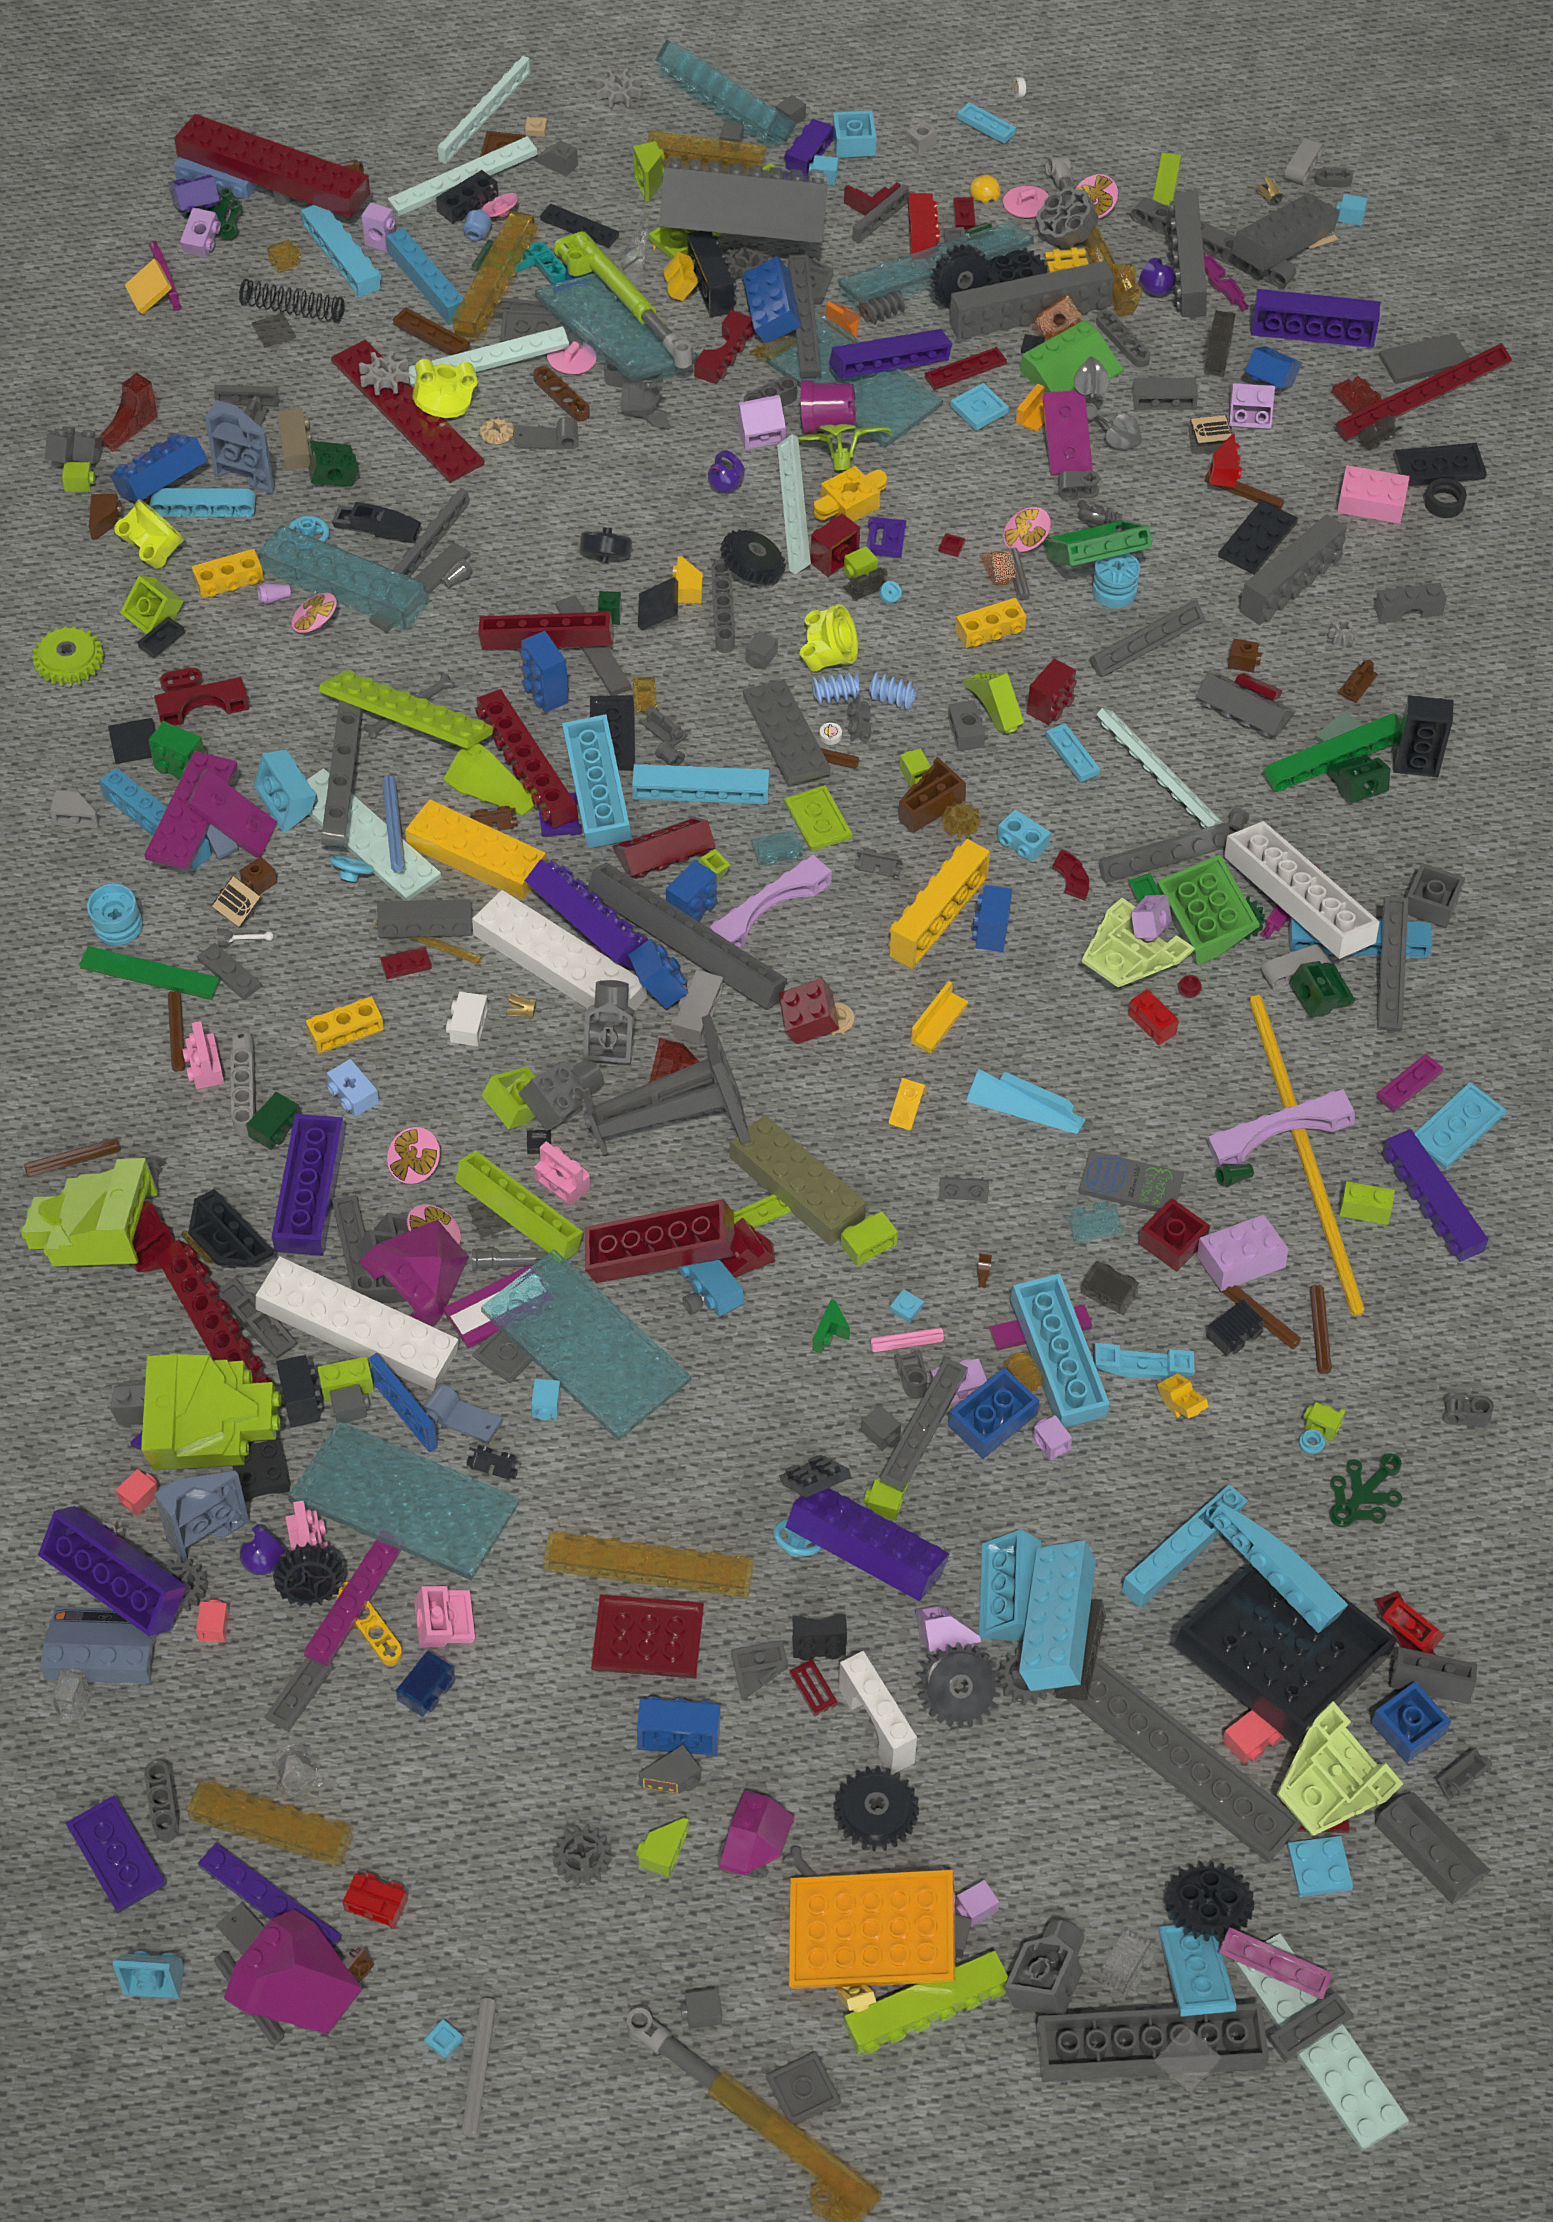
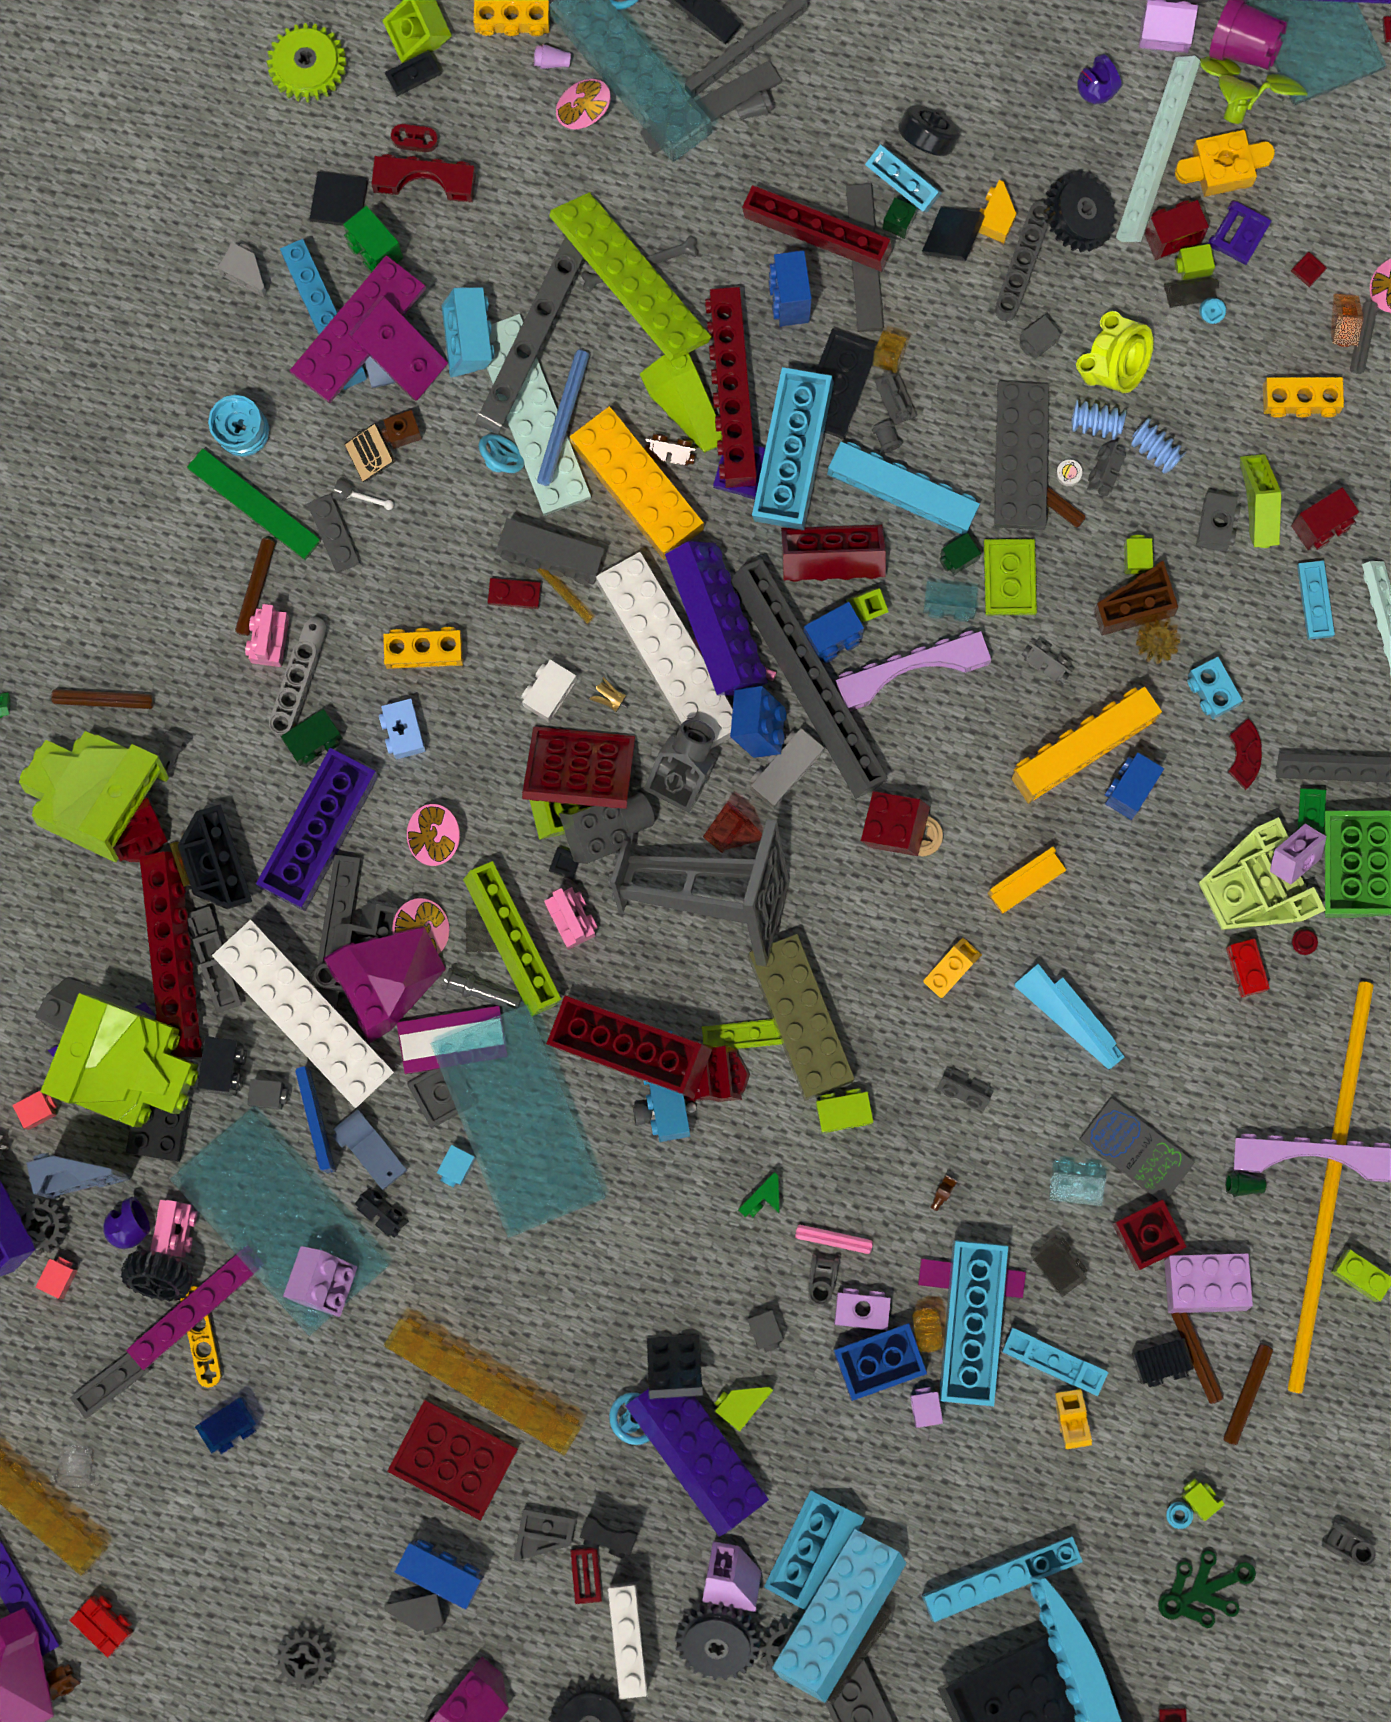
camera: 25 degrees right, 25 degrees up
(344, 1375) = (272, 1066): lime brick -> none
(443, 1616) = (258, 1363): bright pink brick -> none
(462, 1523) = (320, 1281): none -> lavender slope
(521, 1055) = (579, 767): none -> dark red plate
(596, 578) = (903, 178): none -> medium azure brick
(663, 1847) = (378, 1683): lime slope -> none
(769, 813) = (959, 554): none -> dark green brick
(906, 1305) = (850, 1200): medium azure plate -> none
(923, 1425) = (803, 1354): dark grey plate -> none

